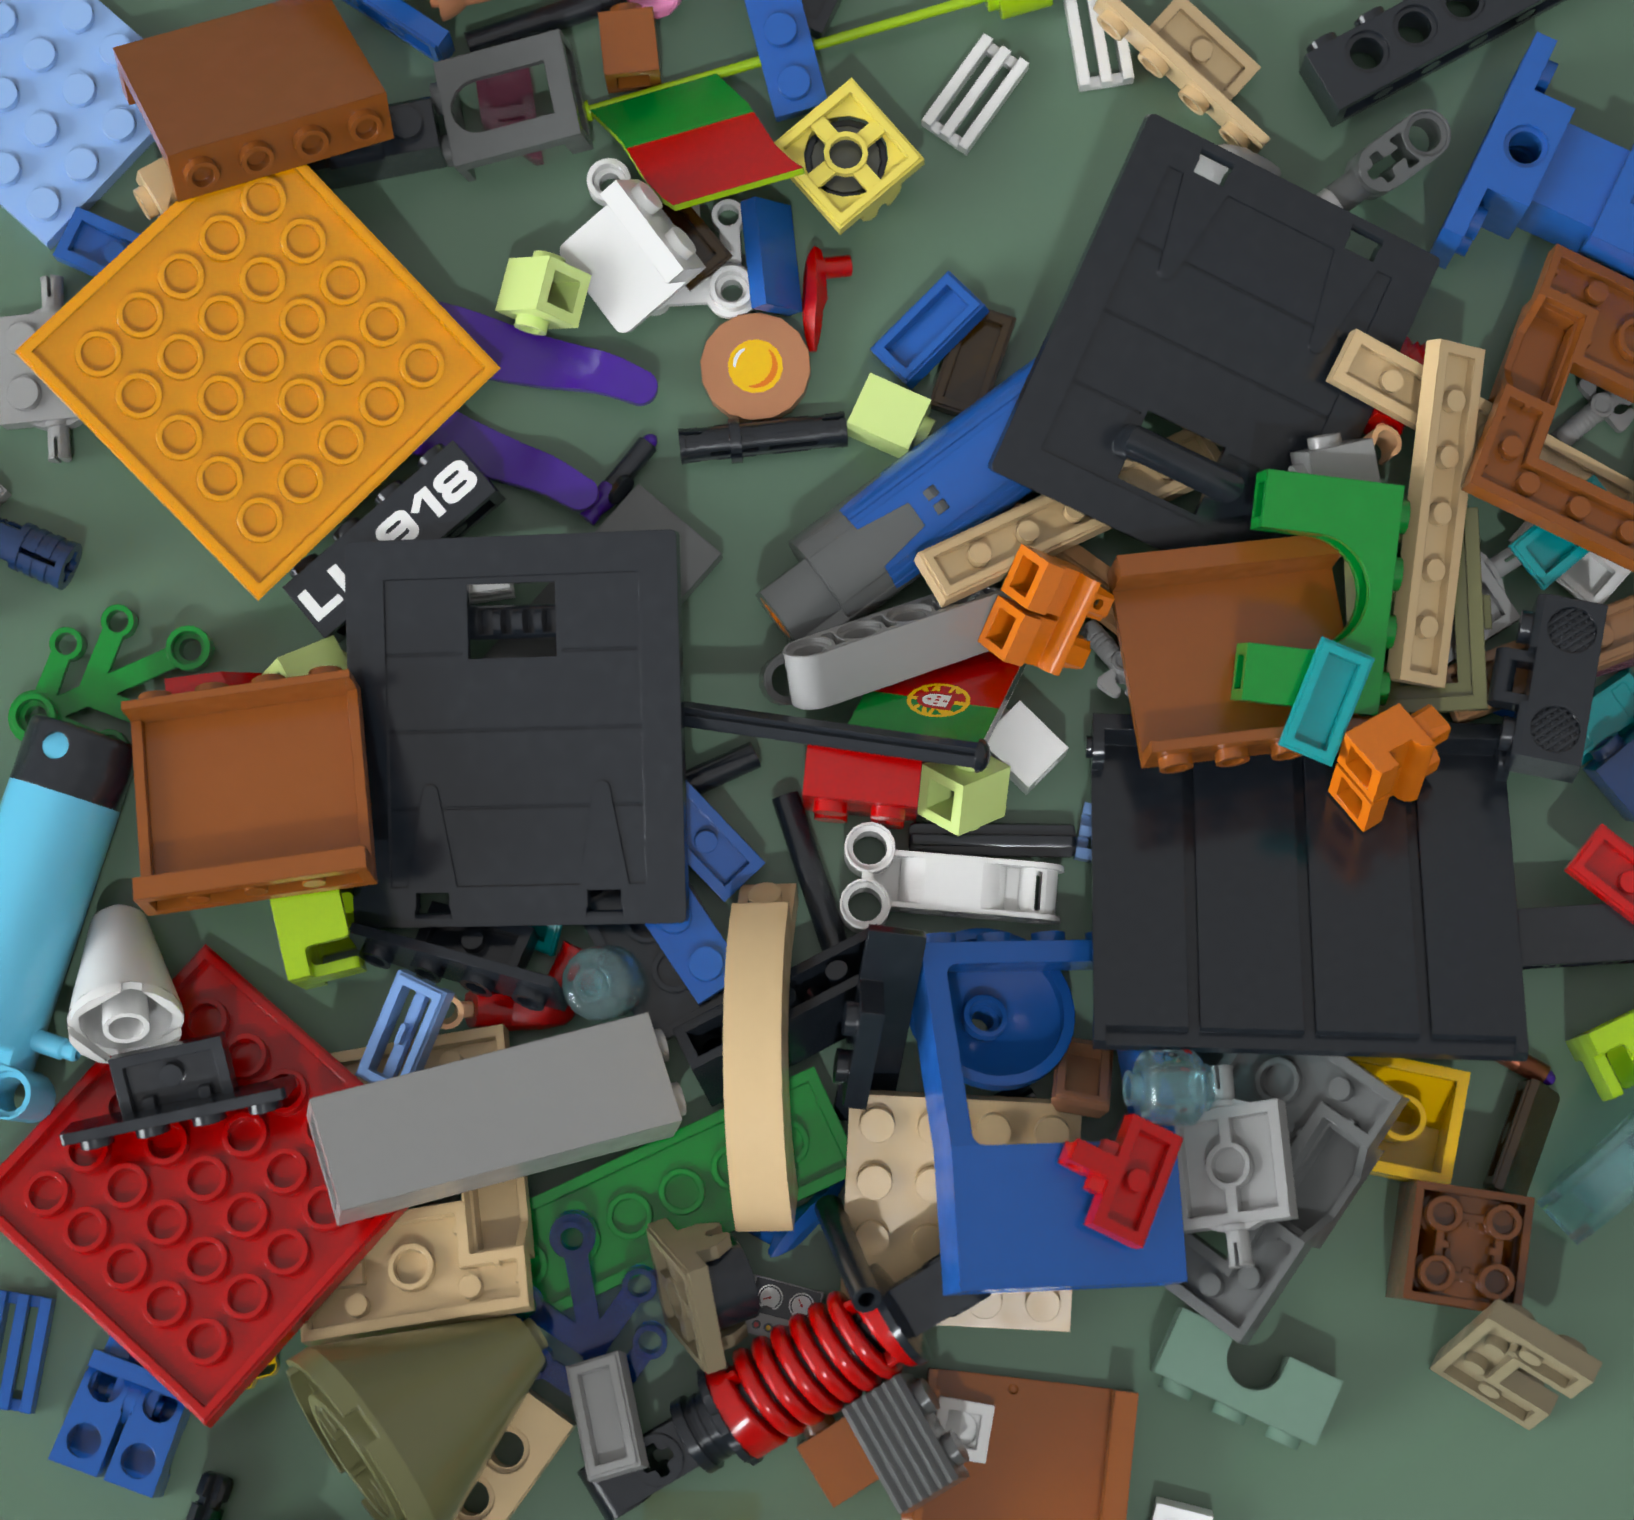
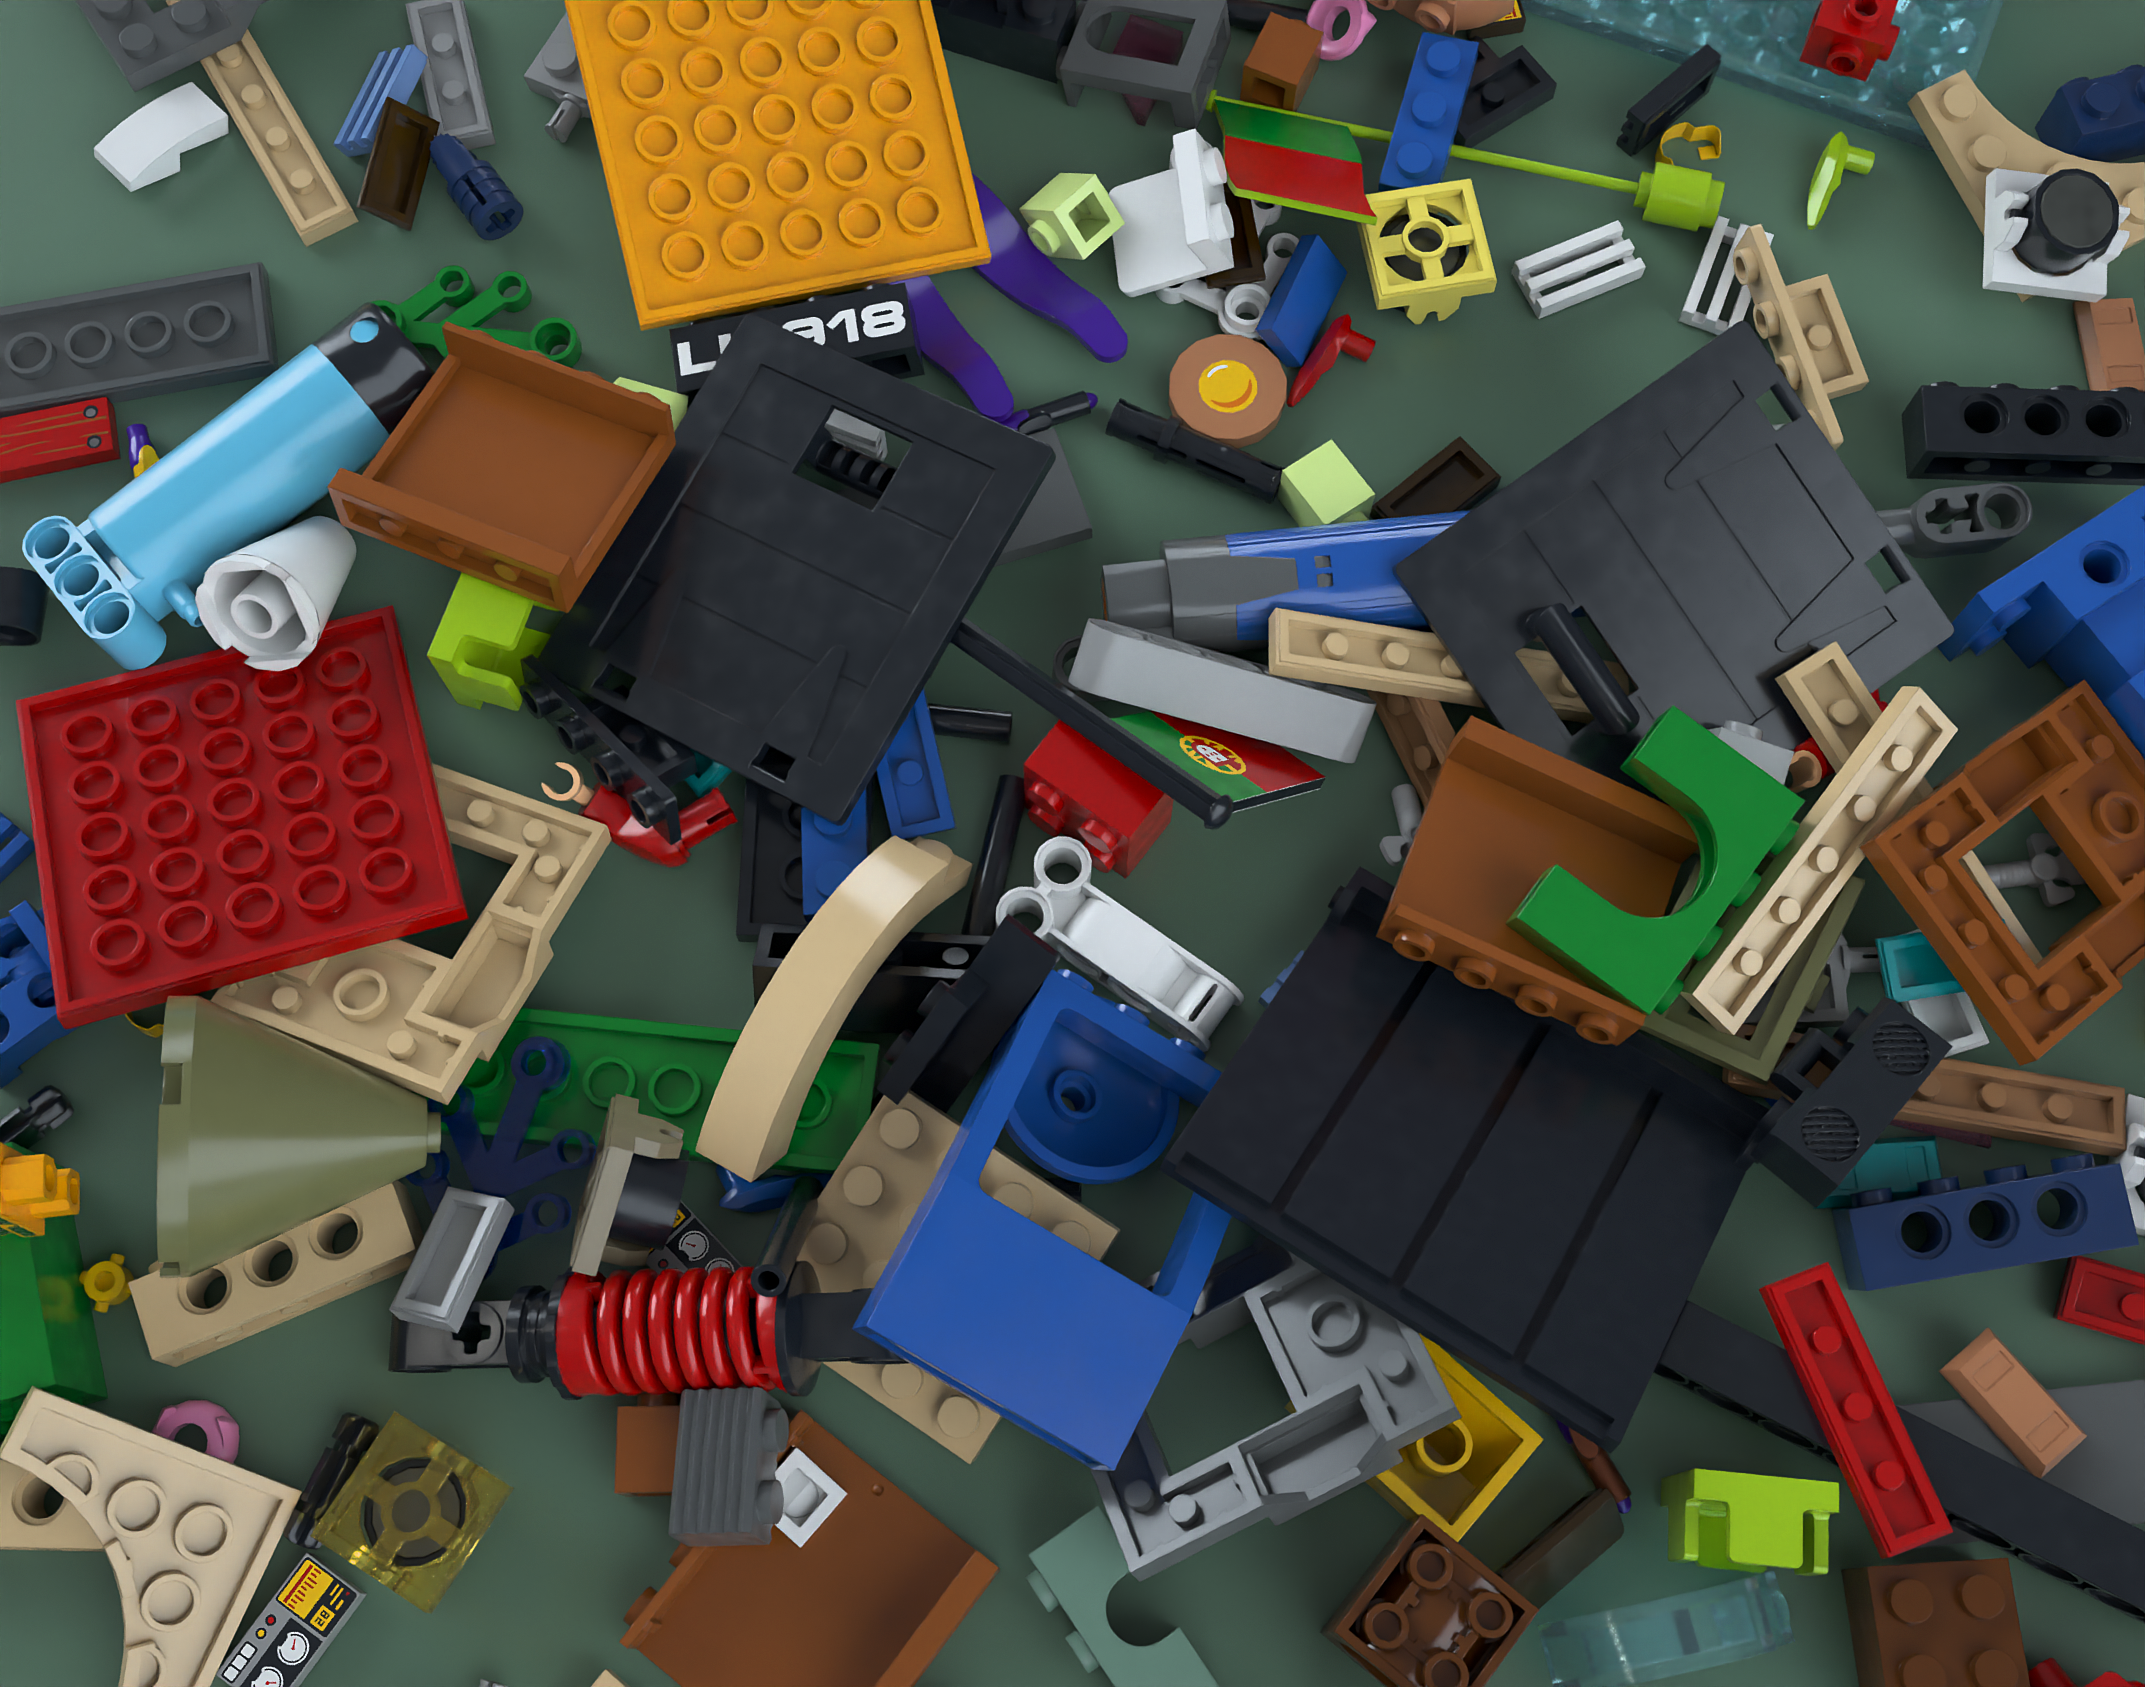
camera: 25 degrees right, 10 degrees down
(175, 1085) = (266, 693): black bracket -> none
(426, 1036) = (511, 784): medium blue tile -> none
(494, 1117) = (530, 894): light grey brick -> none
(603, 982) = (724, 838): clear light blue head -> none
(929, 330) = (1412, 441): blue tile -> none
(960, 797) = (1188, 864): yellowish green brick -> none
(996, 840) = (1210, 945): black axle -> none
(1026, 746) = (1271, 861): white brick -> none
(1046, 613) = (1359, 762): orange hips -> none
(1083, 1080) = (1135, 1210): nougat tile -> none
(1125, 1177) = (1111, 1316): red hinge -> none
(1169, 1087) = (1214, 1254): clear light blue head -> none
(1236, 1168) = (1235, 1381): light grey plate -> none
(1326, 701) = (1604, 965): teal tile -> none
(1386, 759) = (1633, 1068): orange hips -> none

